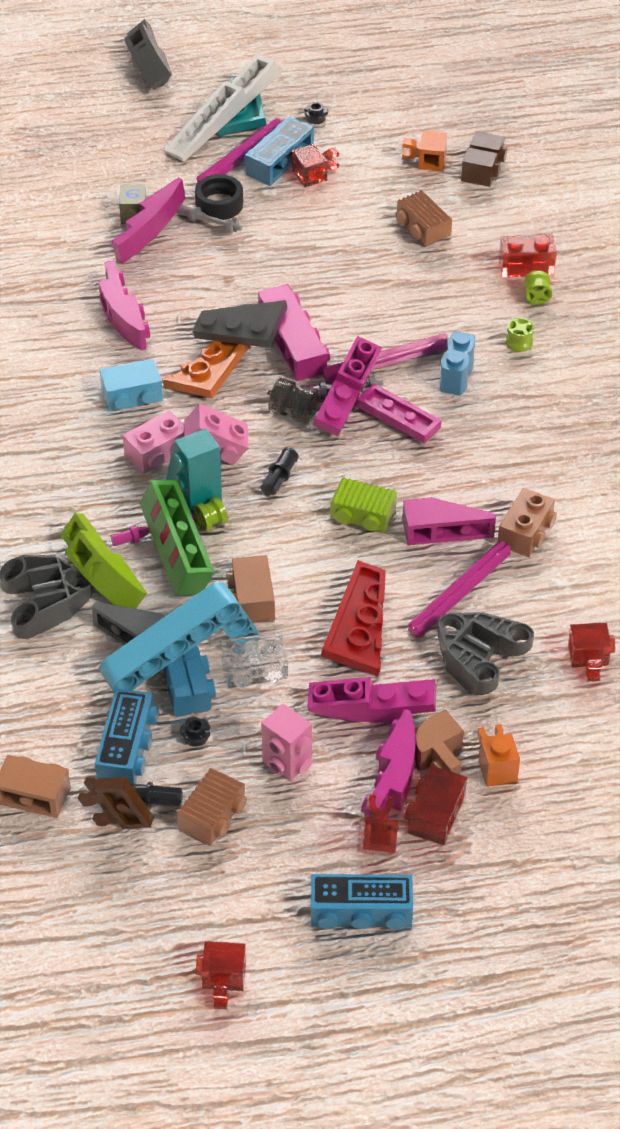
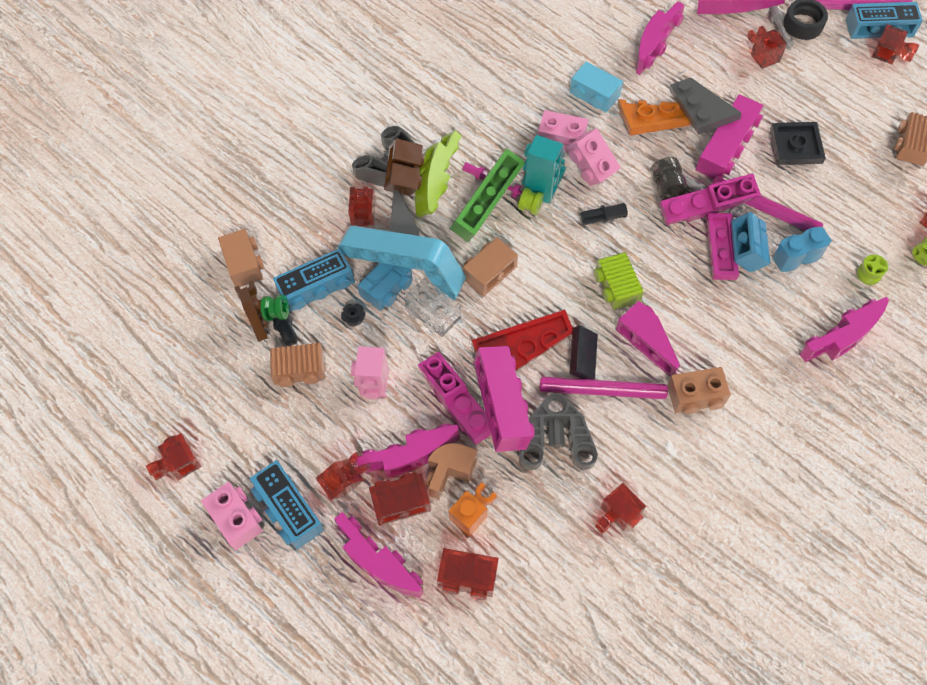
camera: 55 degrees right, 15 degrees up
(75, 579) = (403, 167): none -> reddish brown piece
(76, 646) = (361, 206): none -> clear red brick
(139, 775) = (274, 307): none -> green wheel
(223, 240) = (767, 46): none -> clear red brick
(336, 950) = (232, 515): none -> bright pink brick
(345, 293) = (797, 143): none -> black plate
(413, 577) = (583, 353): none -> black tile
(414, 653) = (503, 399): none -> dark pink brick
(417, 389) = (750, 242): none -> dark azure brick
(493, 860) = (383, 566): none -> dark pink slope
(556, 796) = (467, 573): none -> clear red brick
(564, 389) = (848, 332): none -> dark pink slope

